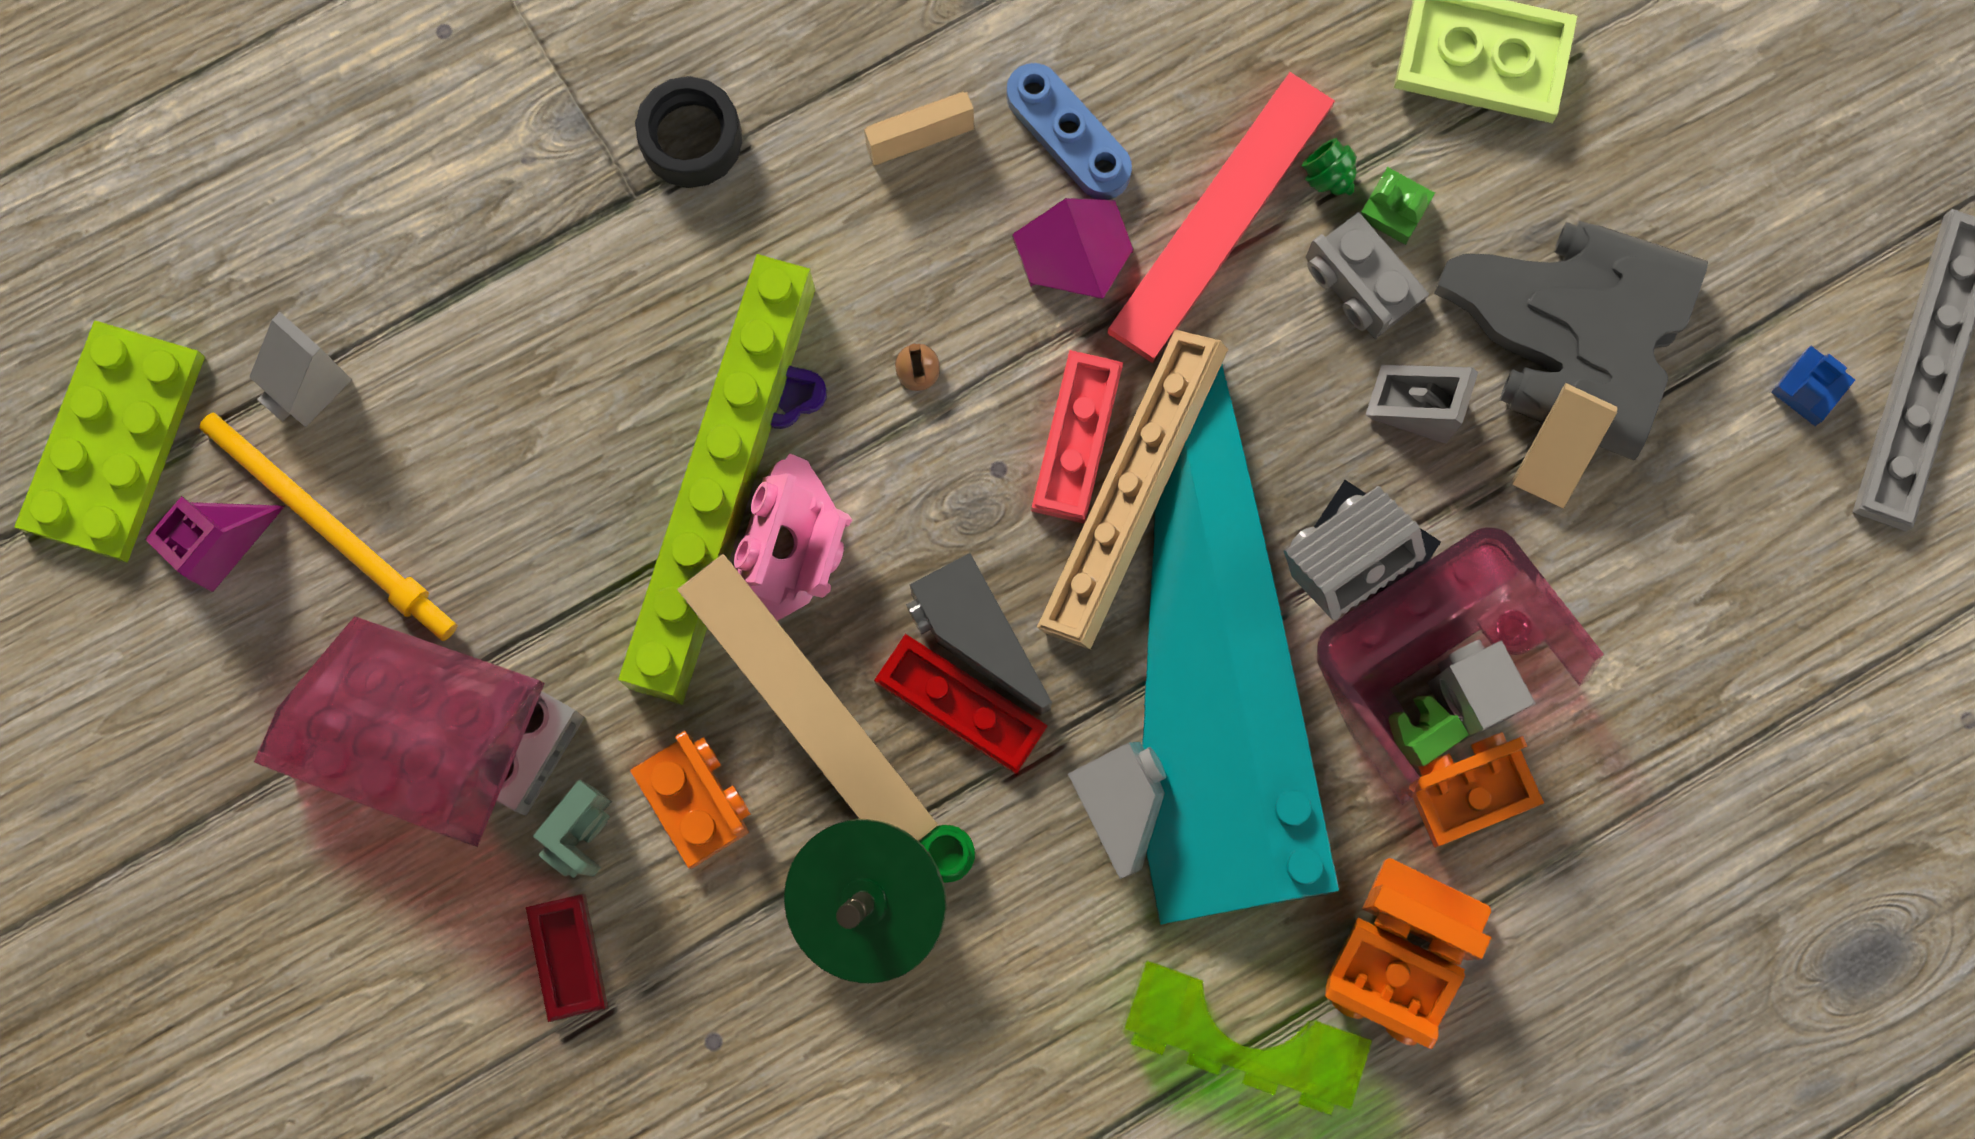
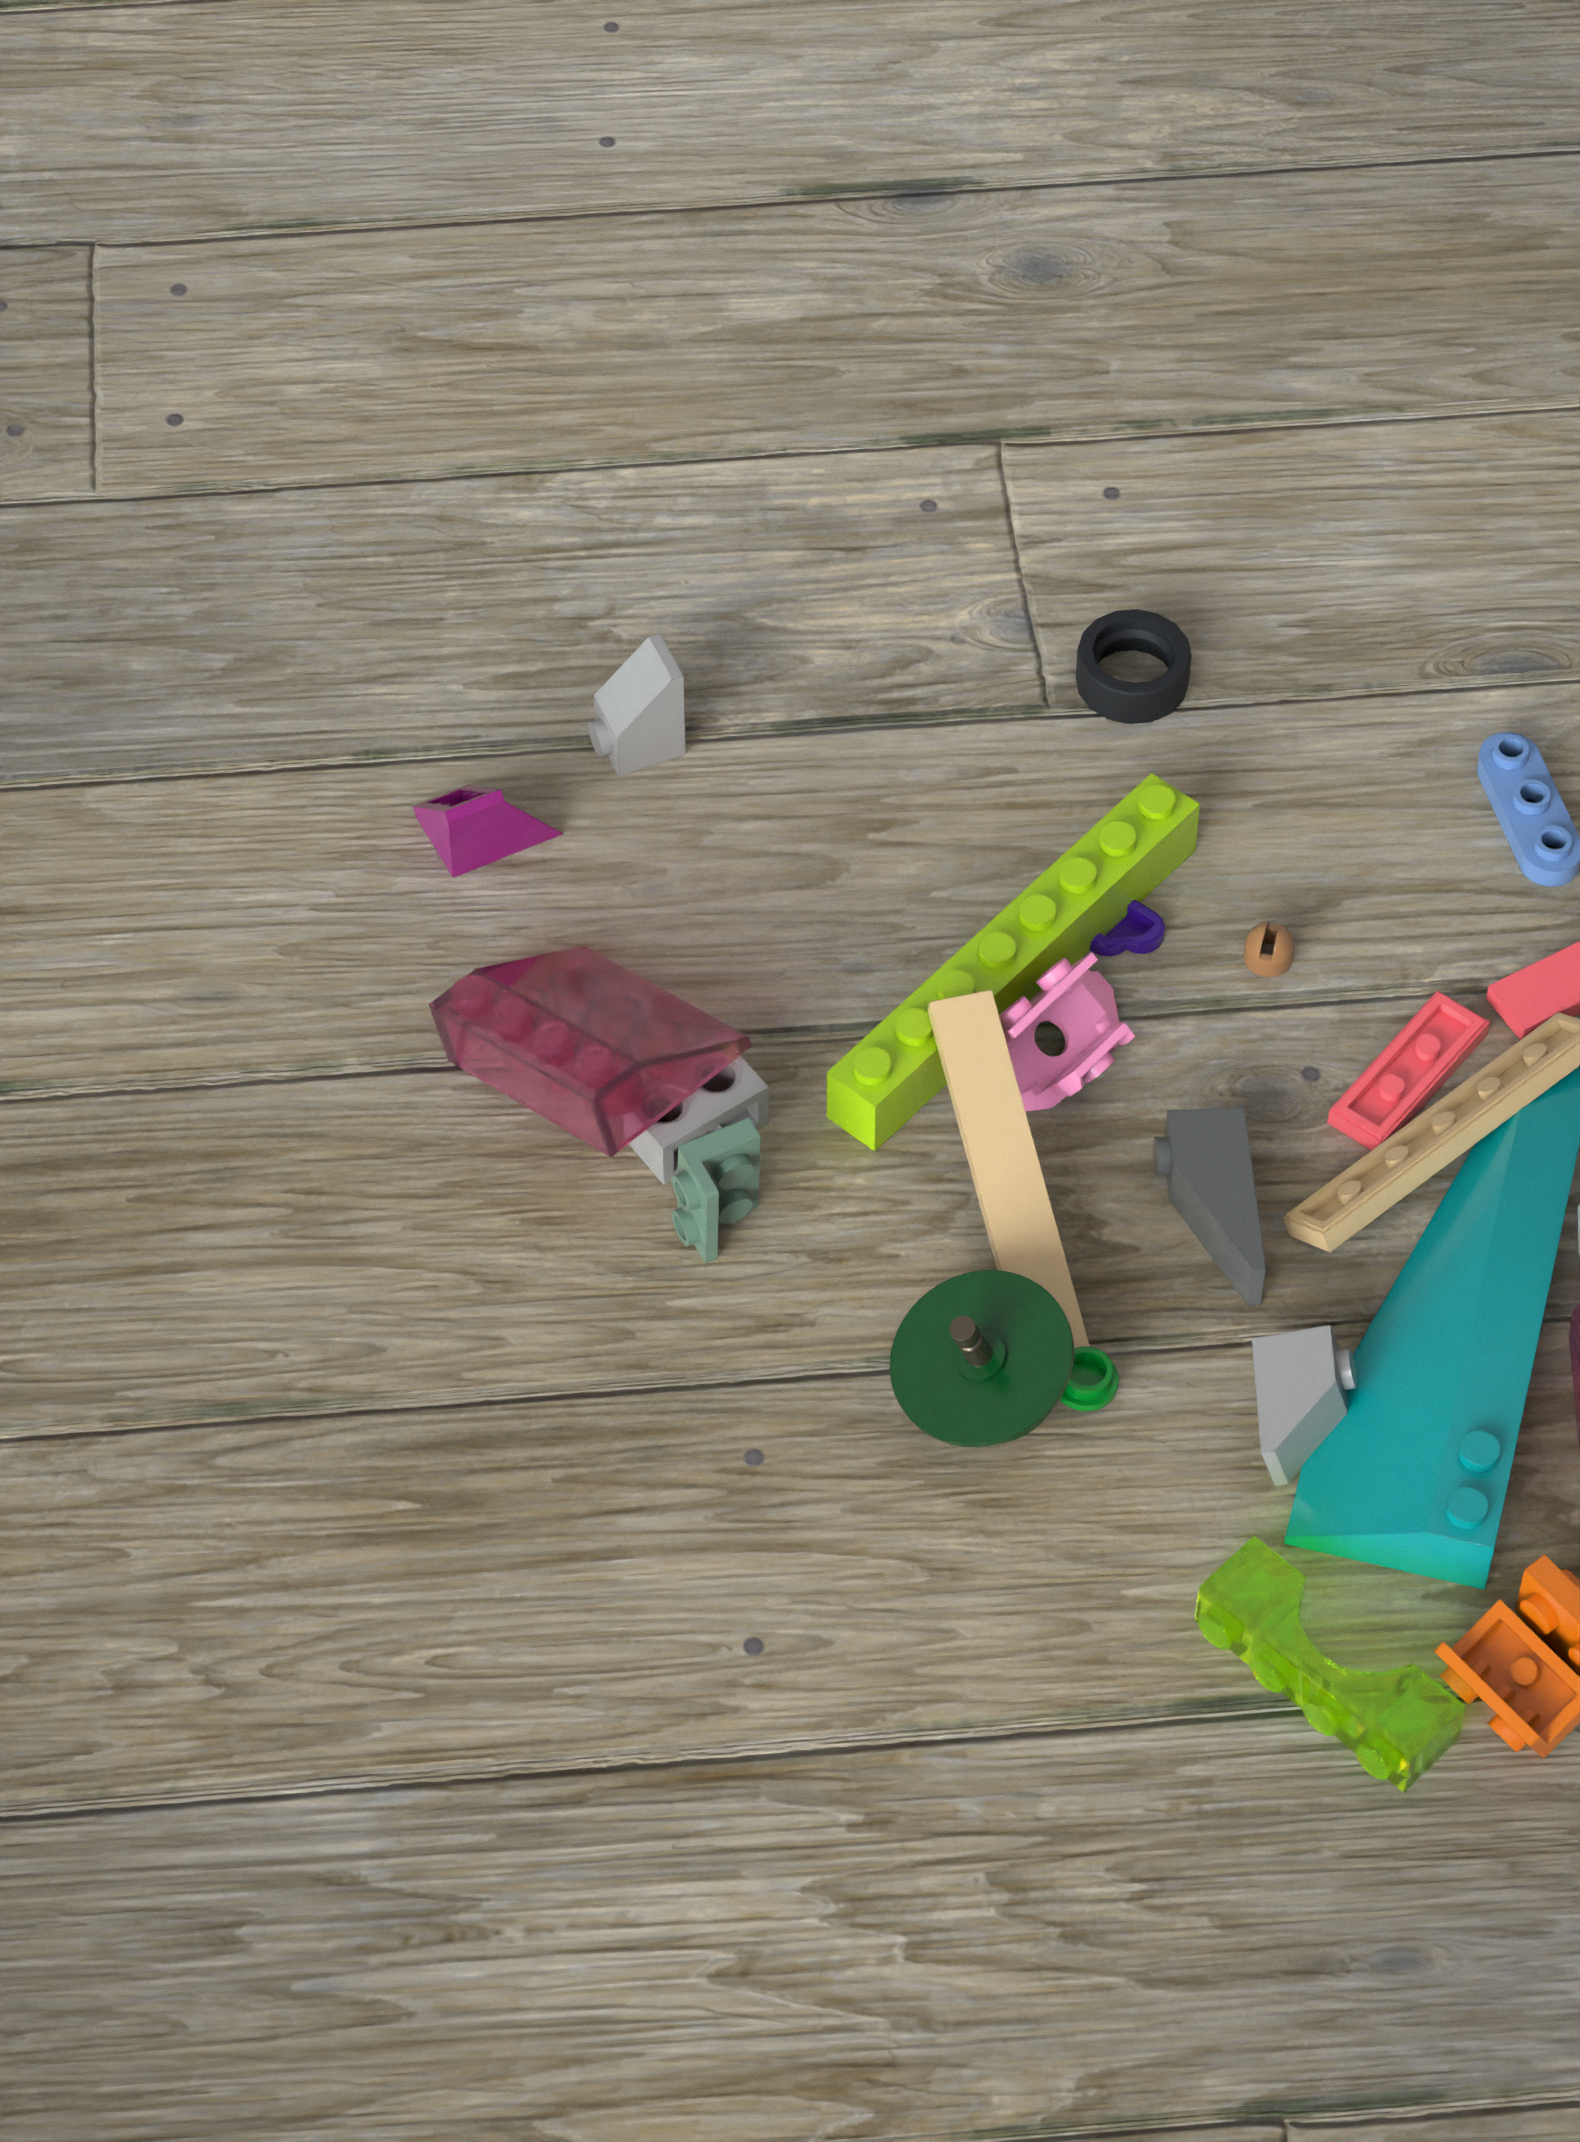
camera: 25 degrees right, 25 degrees down
(110, 441) = (423, 714): lime plate -> none
(403, 593) = (643, 941): yellow bar -> none
(566, 957) = (641, 1318): dark red tile -> none
(691, 800) = (844, 1229): orange bracket -> none
(919, 128) = (1372, 744): tan tile -> none
(961, 704) = (1168, 1258): red tile -> none
(1075, 246) = (1487, 896): magenta slope -> none

